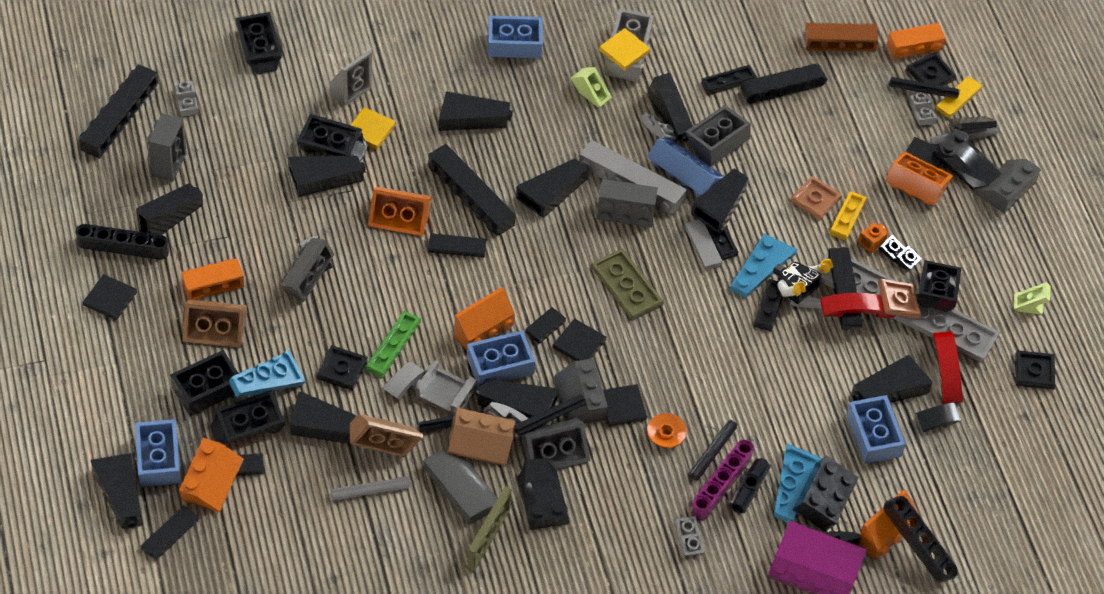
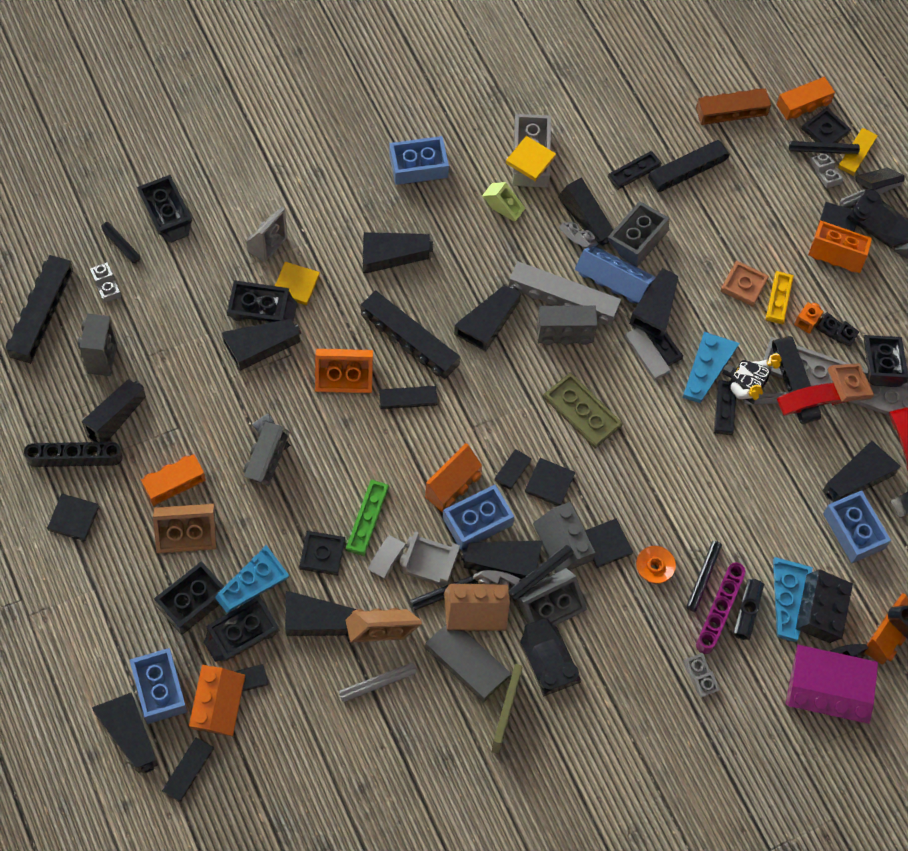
camera: 10 degrees left, 10 degrees up
(209, 66) = (120, 242): none -> black axle

